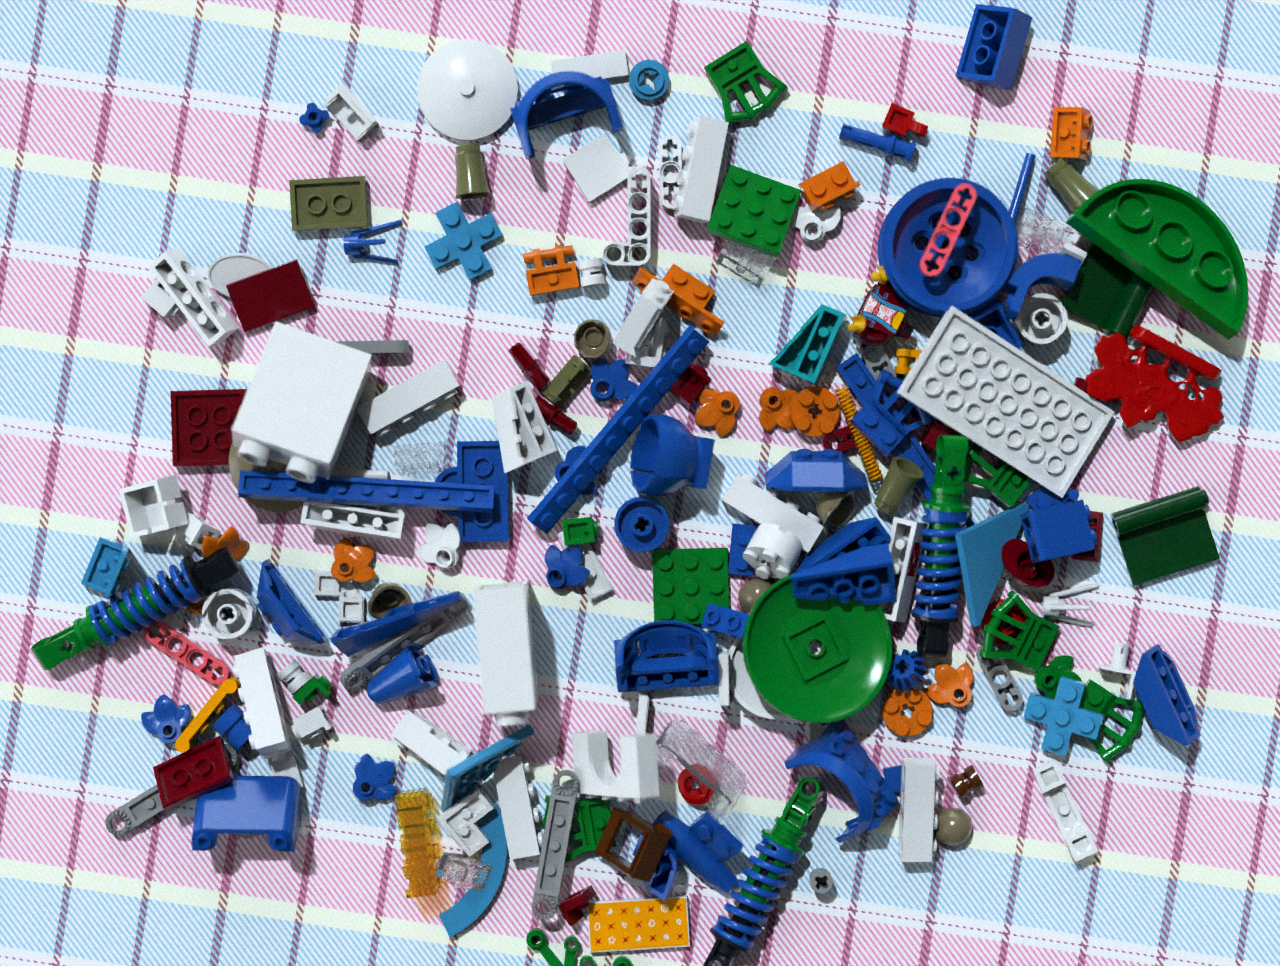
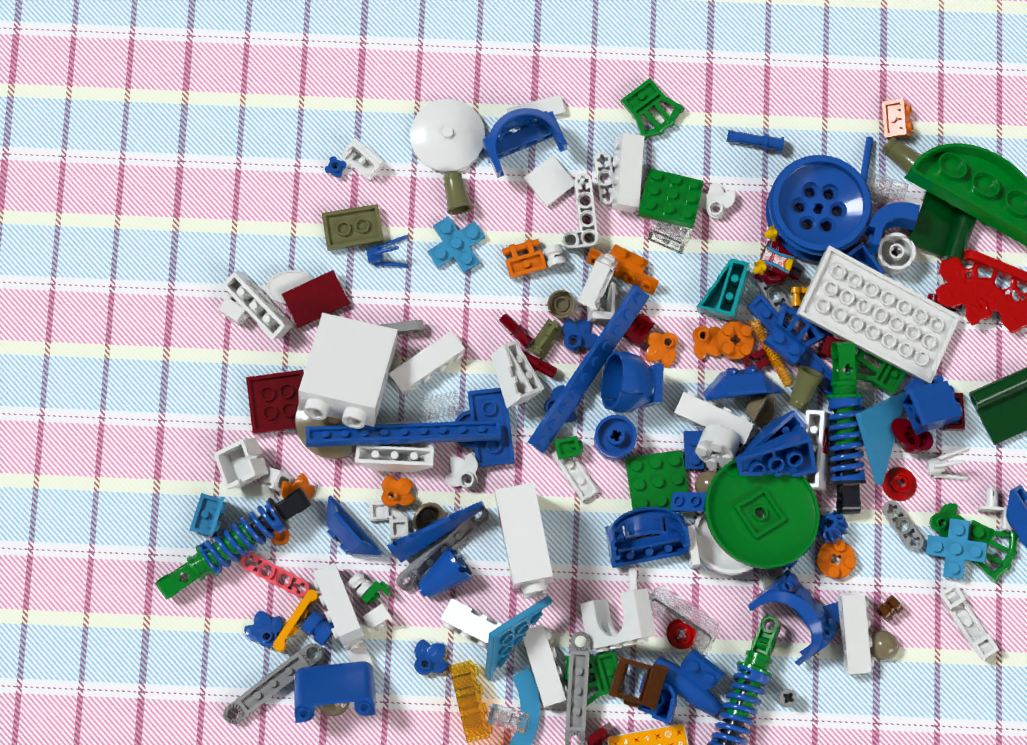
camera: 10 degrees left, 10 degrees down
(193, 773) = (289, 666): dark red tile -> none
(215, 616) = (302, 529): white brick -> none
(462, 818) = (502, 680): white plate -> none
(567, 564) = (562, 474): blue plate -> none
(651, 68) = (582, 106): dark azure gear -> none
(828, 186) = (724, 175): orange bracket -> none
(900, 121) = (770, 123): red plate -> none
(944, 228) = (819, 191): coral beam -> none
(949, 682) = (865, 533): orange plate -> none
(994, 46) = (832, 63): blue slope -> none
(1032, 641) = (925, 490): green plate -> none

